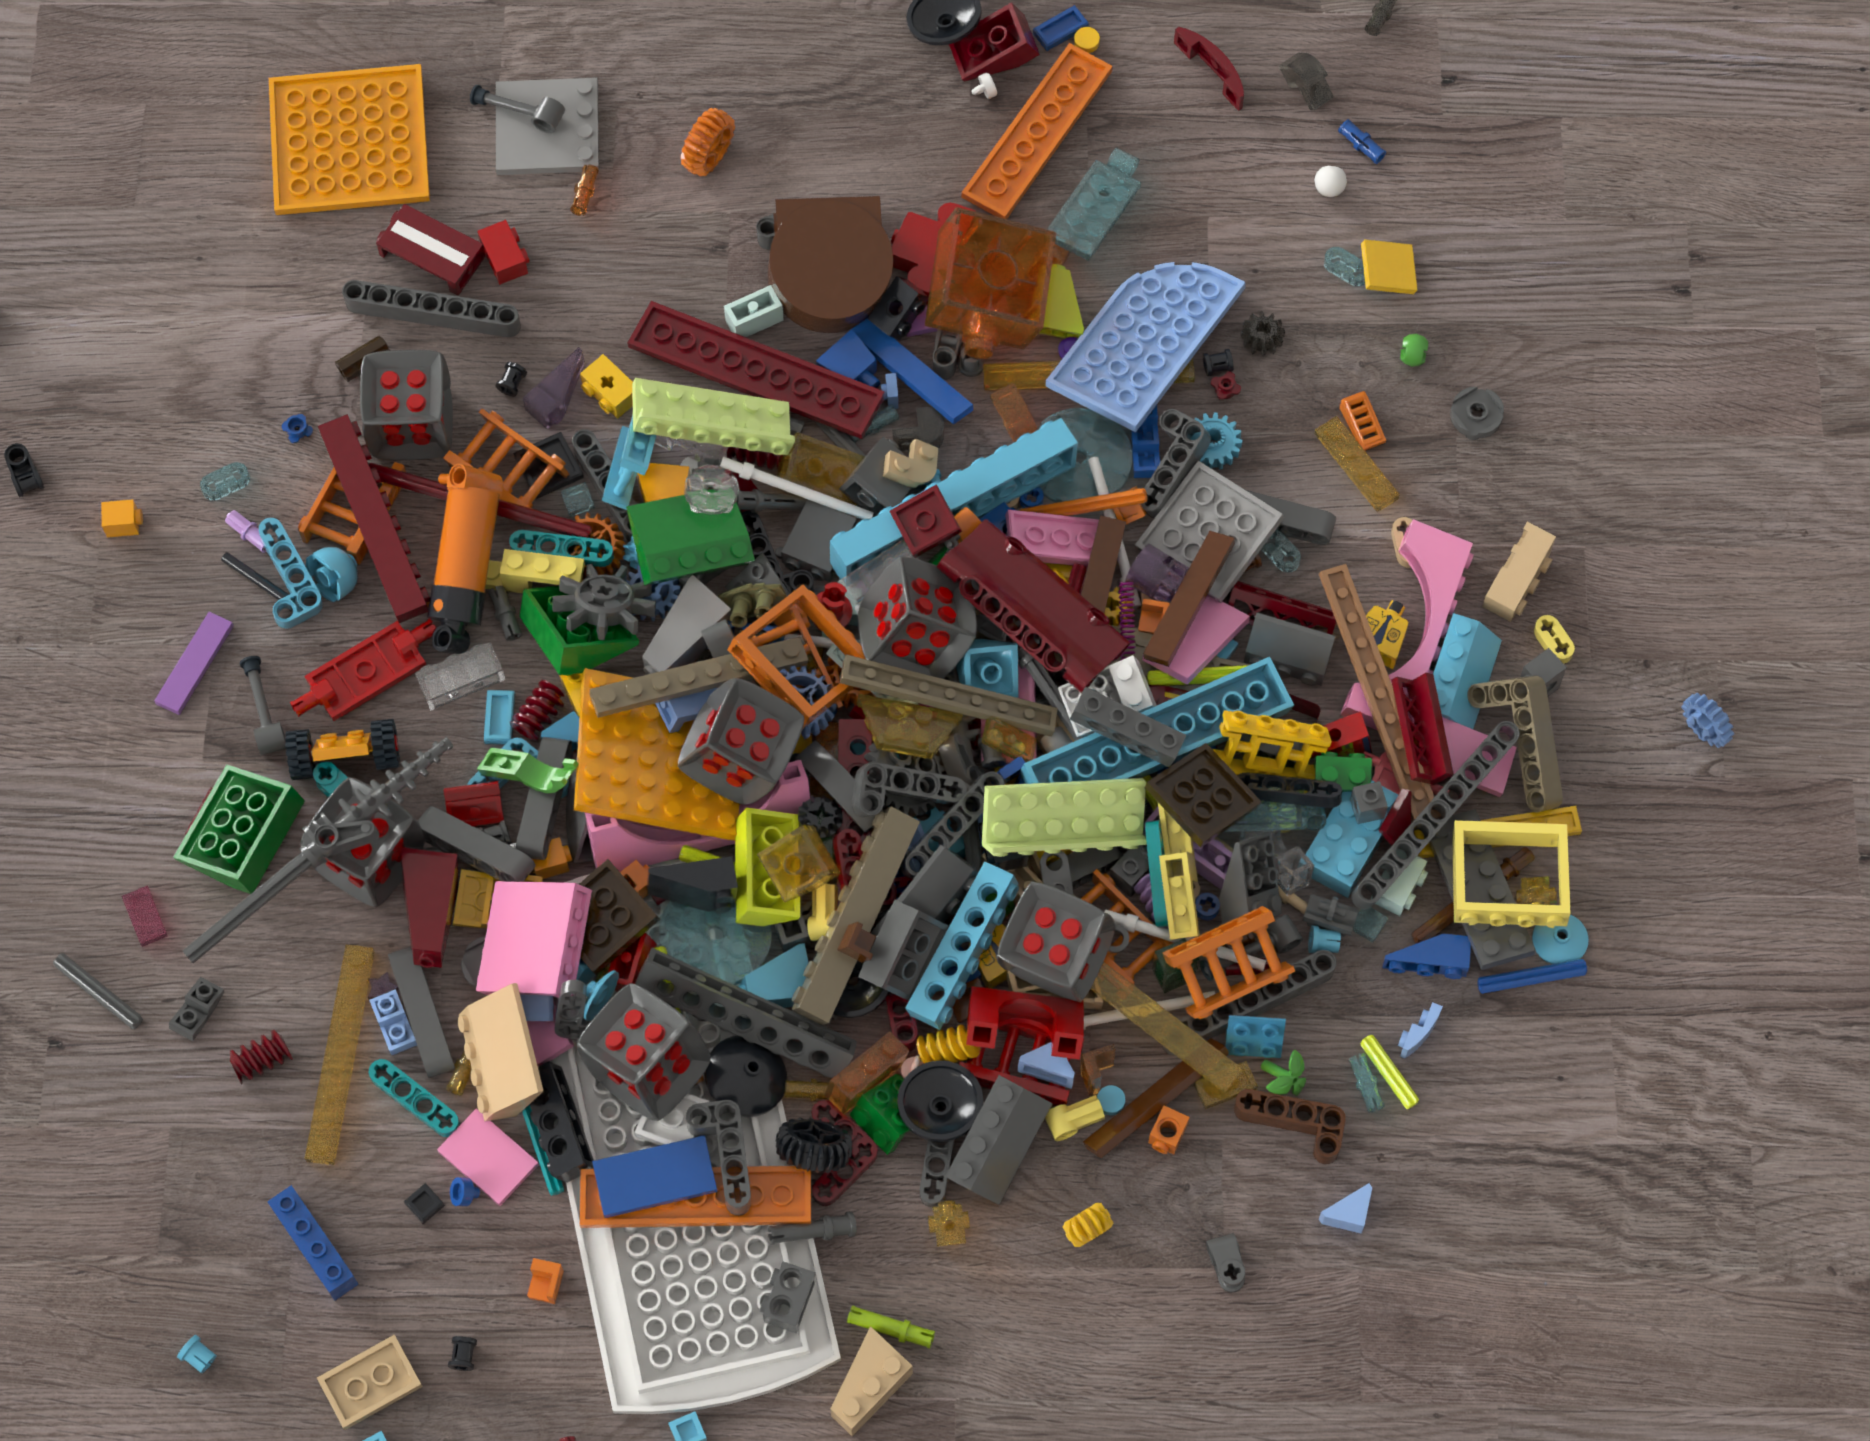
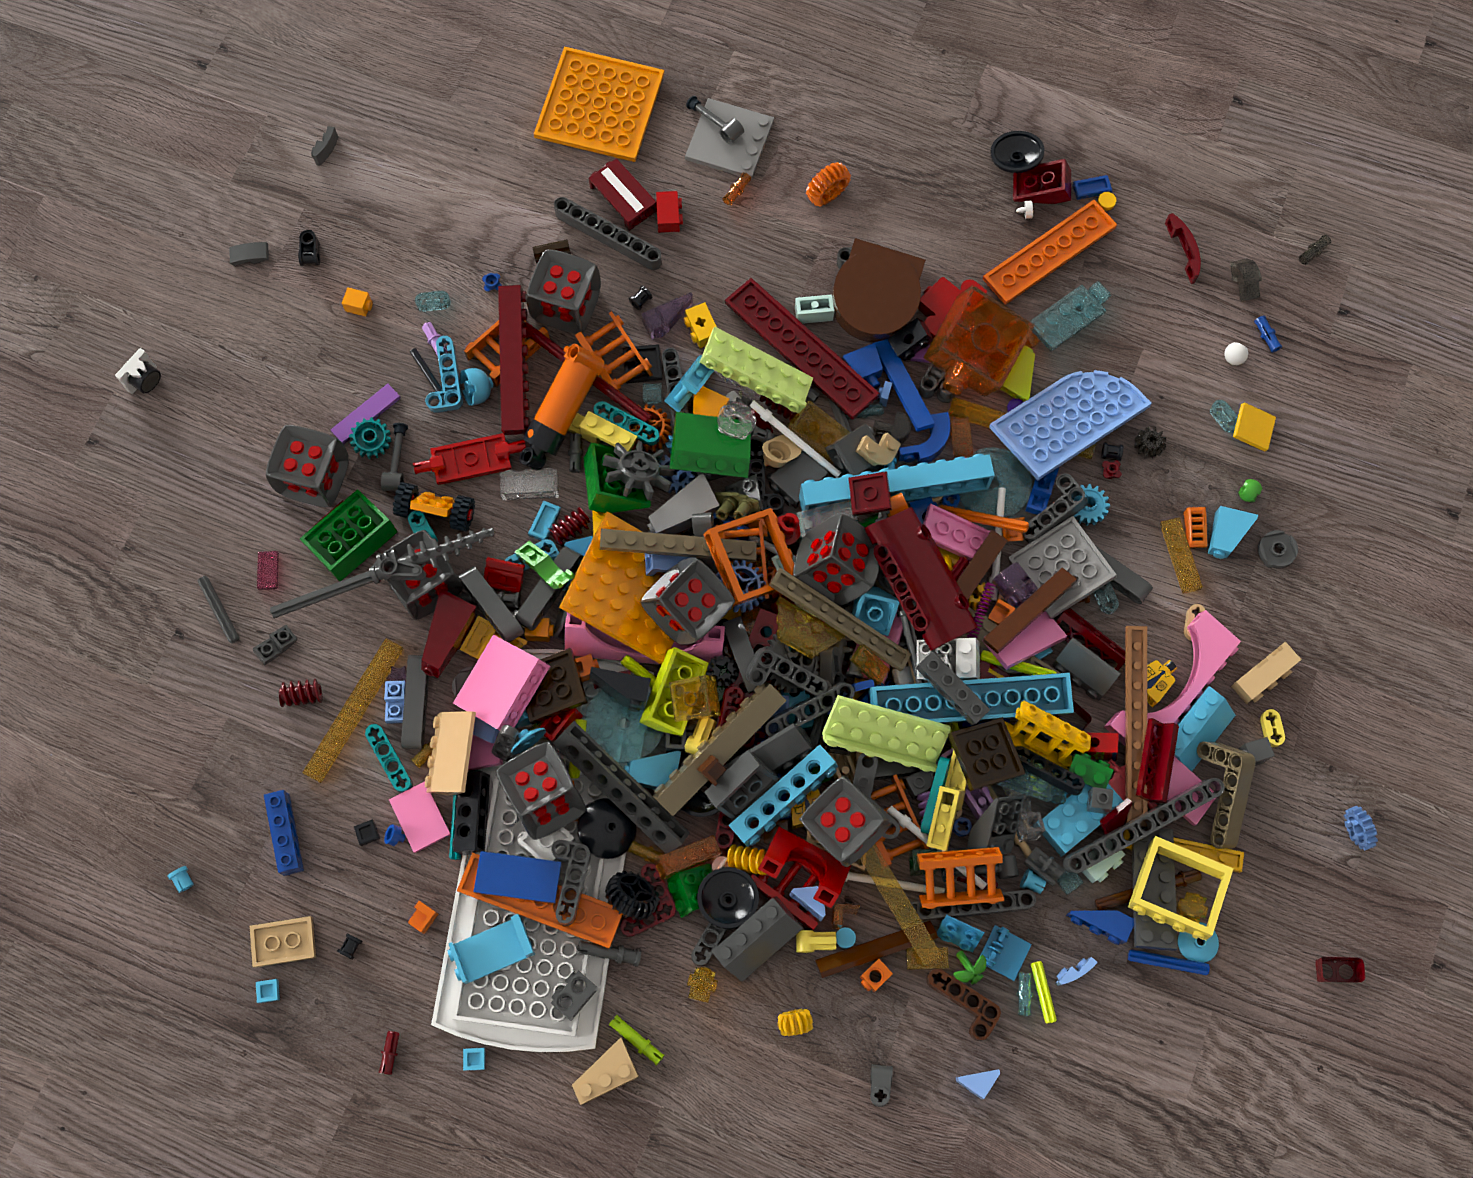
camera: 20 degrees right, 5 degrees up
(148, 755) = (307, 466): none -> dark grey piece
(222, 703) = (372, 447): none -> teal gear
(657, 1282) = (491, 950): none -> medium azure panel
(782, 513) = (779, 451): none -> tan piece
(981, 438) = (933, 446): none -> blue arch
(1322, 1040) = (1005, 952): none -> dark azure hinge
(1405, 410) = (1228, 530): none -> medium azure slope
(1747, 892) = (1356, 964): none -> dark red piece

